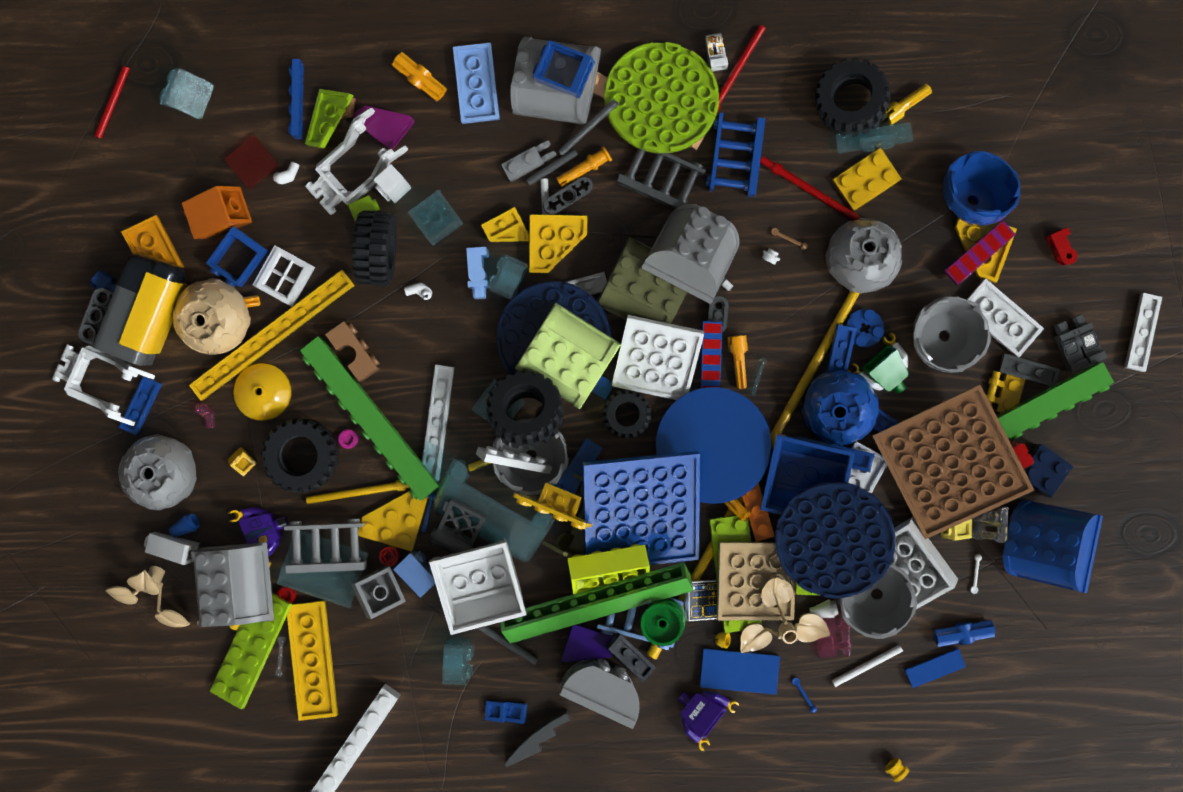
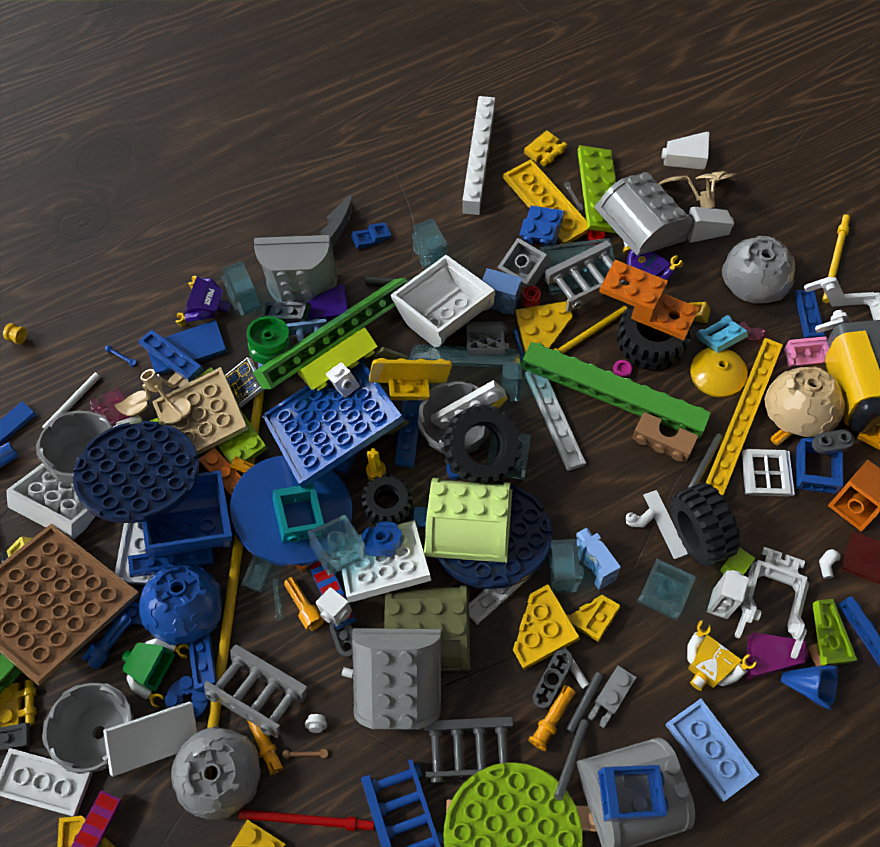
camera: 155 degrees right, 25 degrees down
(45, 475) = (842, 232): none -> yellow bar
(134, 646) = (687, 151): none -> white slope
(171, 367) = (806, 351): none -> bright pink hinge
(185, 525) = (709, 246): blue cone -> none
(213, 267) = (834, 441): none -> dark grey plate
(234, 419) = (723, 339): none -> medium azure plate
(277, 735) = (542, 145): none -> yellow plate
(291, 479) = (648, 298): none -> orange bracket
(334, 310) = (706, 460): none -> dark grey bar
(334, 630) = (542, 225): none -> blue plate
(367, 87) = (815, 683): none -> blue hat
(399, 277) = (665, 524): none -> white sticker
(419, 76) = (771, 725): light orange piece -> none
(433, 143) = (713, 662): none -> torso
(615, 539) = (342, 380): none -> white brick
(622, 449) = (375, 466): none -> yellow piece
(649, 366) = (385, 547): none -> blue plate
(662, 706) = (240, 288): none -> clear light blue brick
(690, 386) = (336, 545): none -> clear light blue brick
(707, 453) = (294, 495): none -> teal window
(717, 336) = (333, 607): none -> white brick
(723, 639) = (211, 361): yellow hinge -> none
(759, 663) = (170, 355): none -> blue plate
(768, 403) = (257, 574): none -> clear light blue plate
(789, 305) = (258, 669): none -> light grey fence
(817, 263) = (267, 749): none -> light orange pin
(906, 302) = (149, 738): none -> white tile
(920, 403) = (99, 652): none -> blue piece

